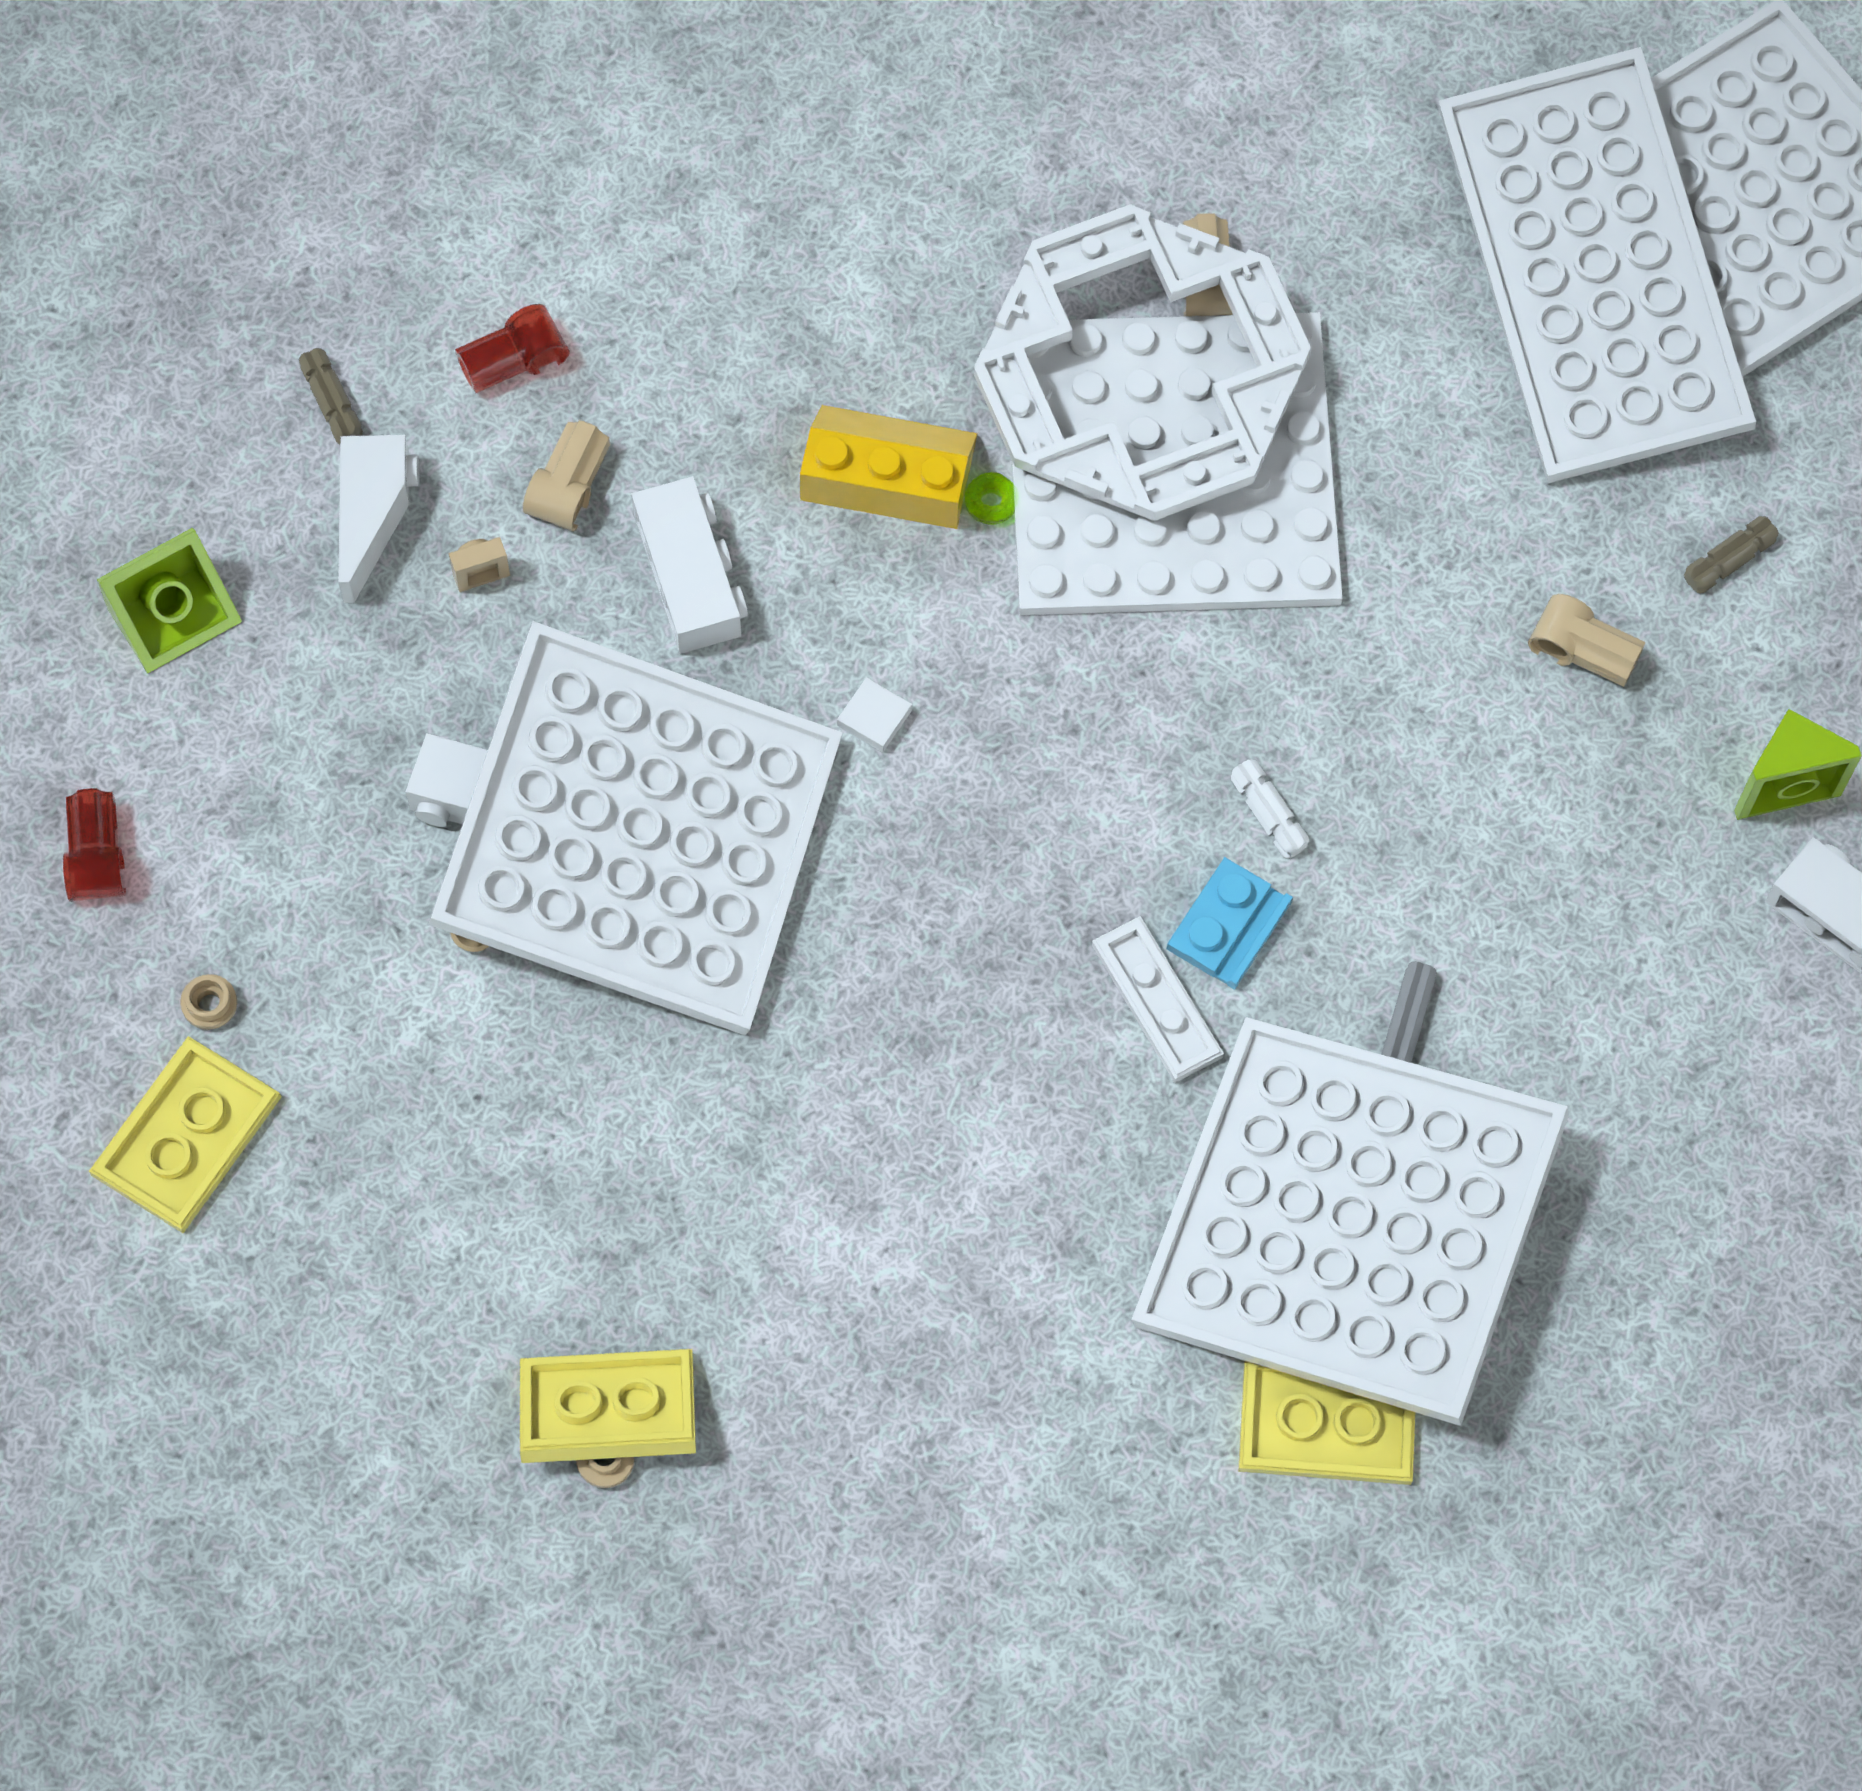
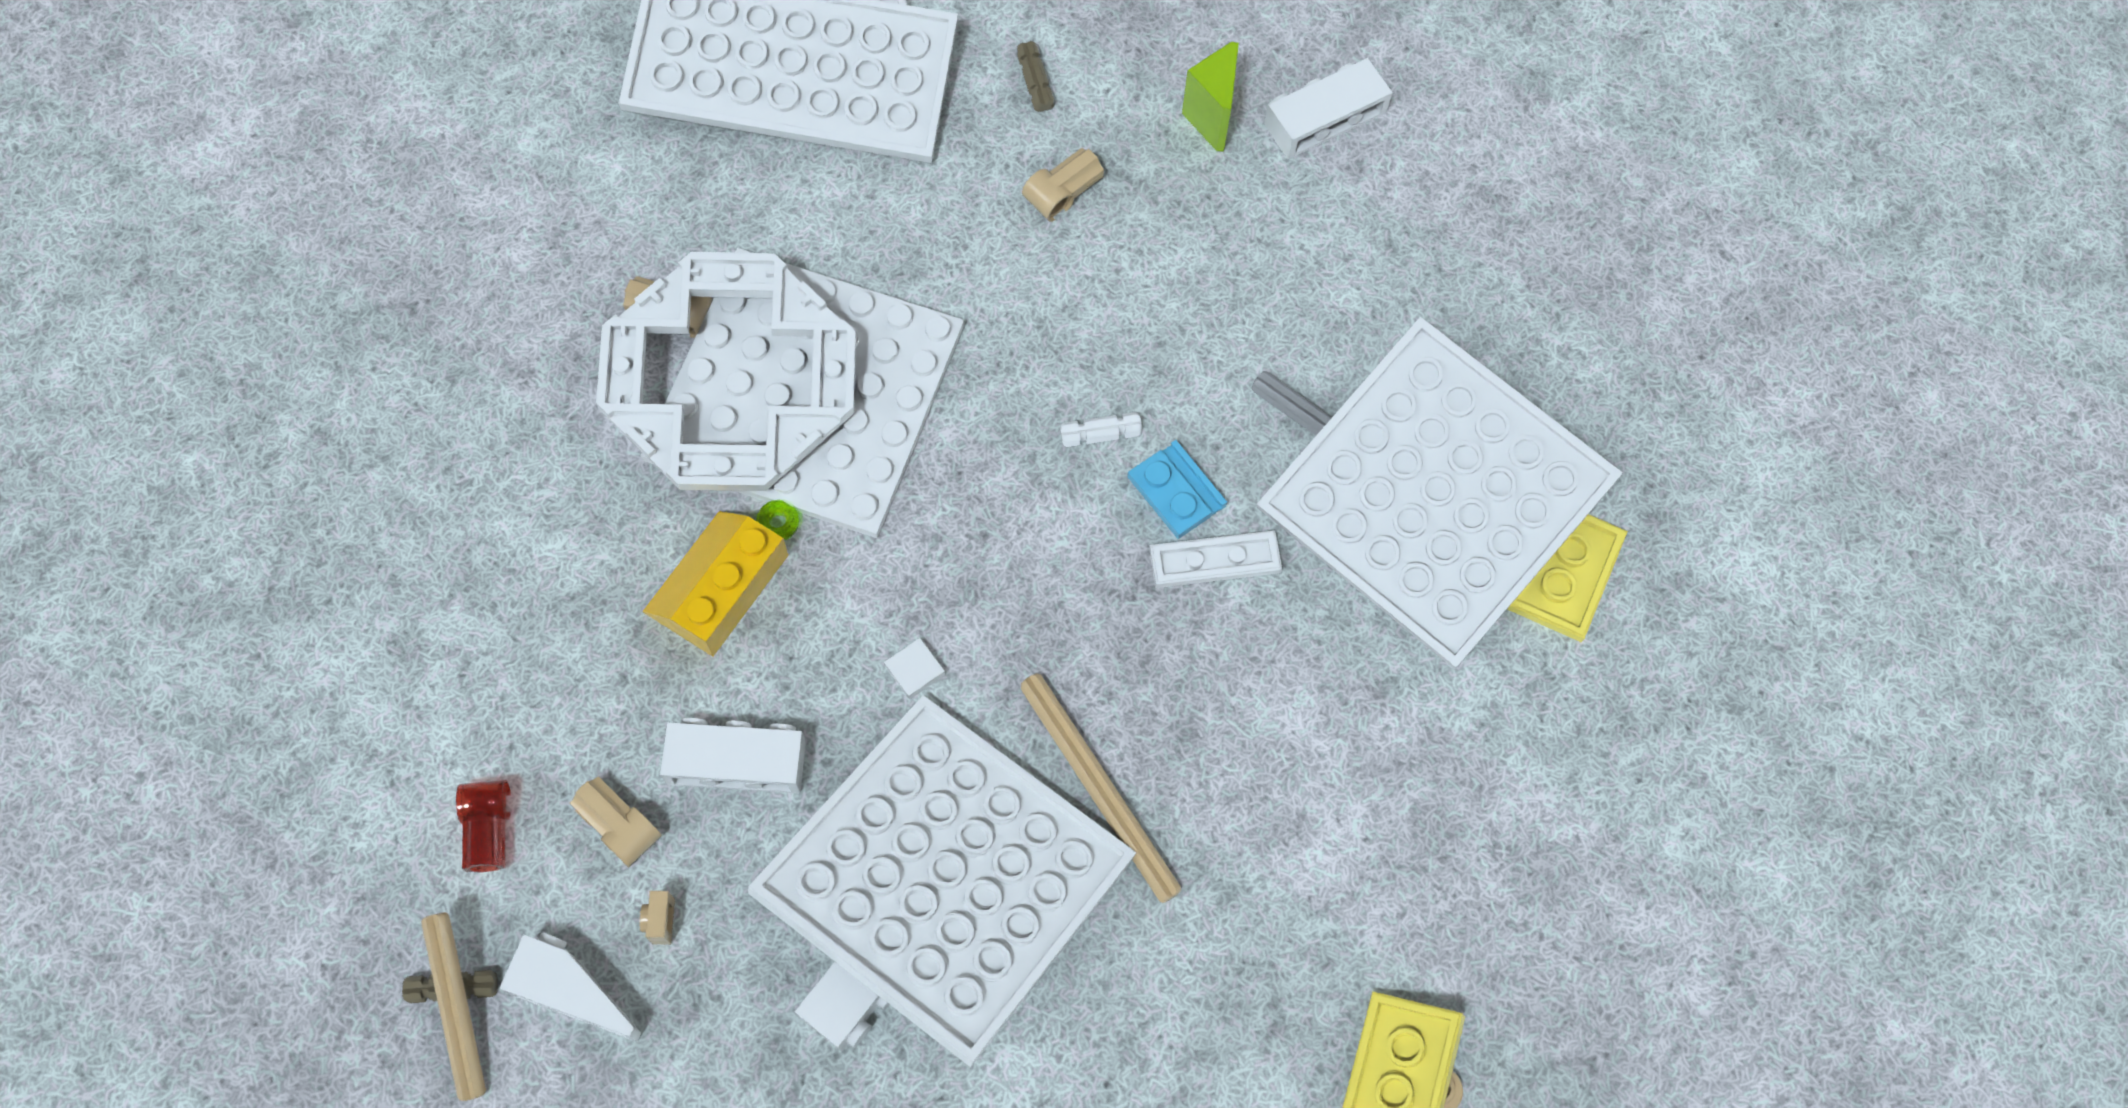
camera: 70 degrees left, 0 degrees up
(308, 404) = (453, 1006): none -> tan axle
(815, 967) = (1100, 787): none -> tan axle

